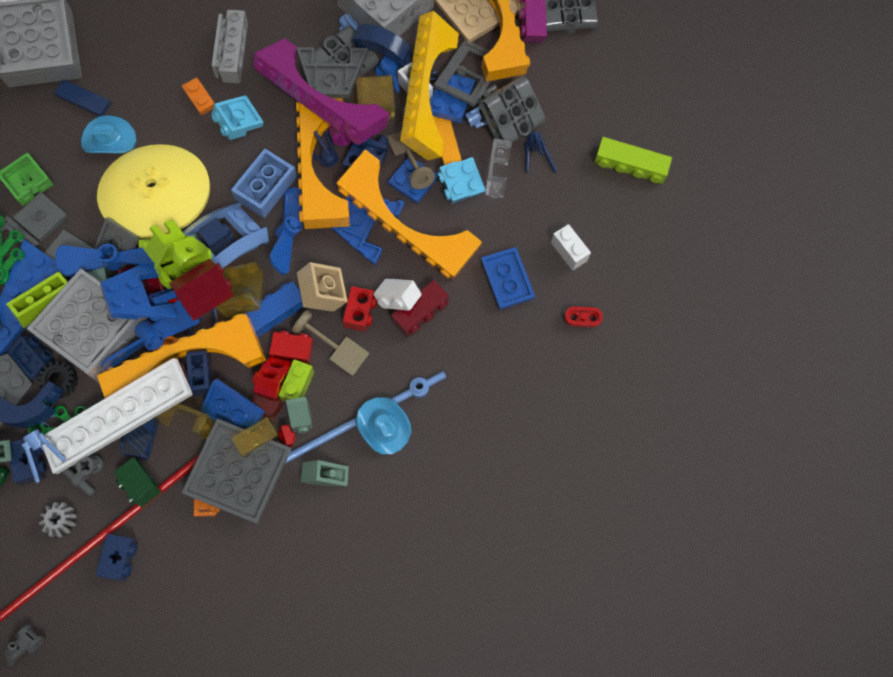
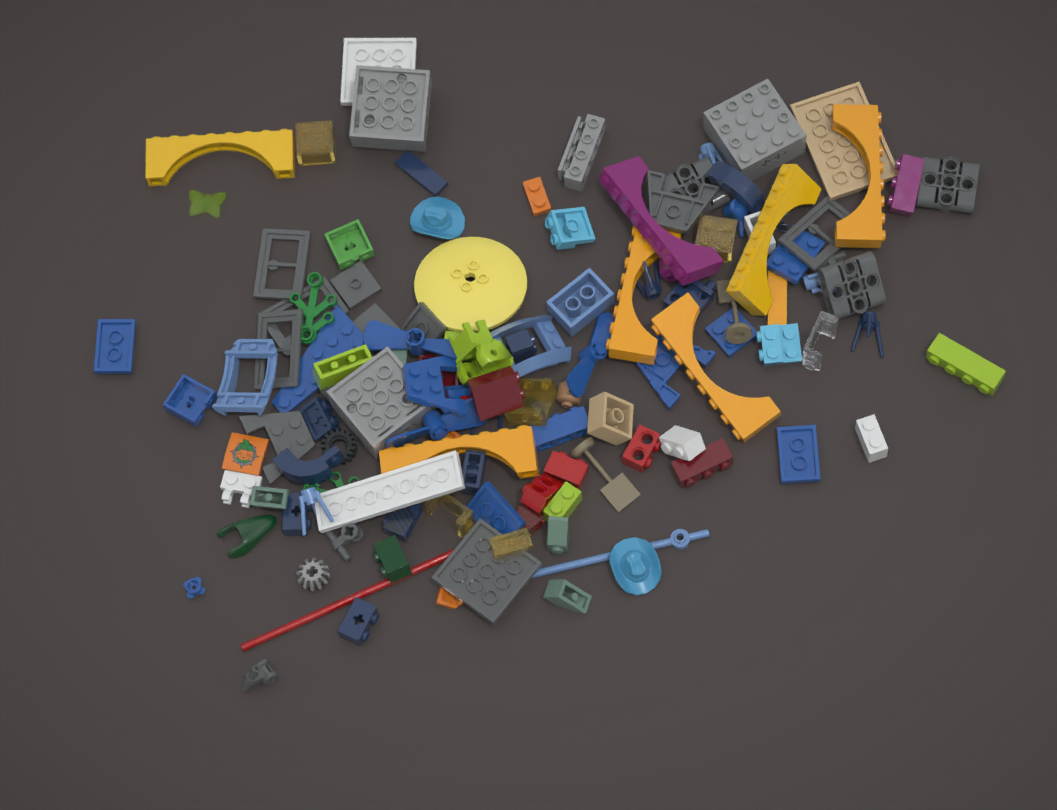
camera: 30 degrees right, 5 degrees down
(272, 276) = (565, 396): none -> medium nougat head
(286, 436) = (540, 551): red plate -> none
(582, 315) = (864, 508): red plate -> none

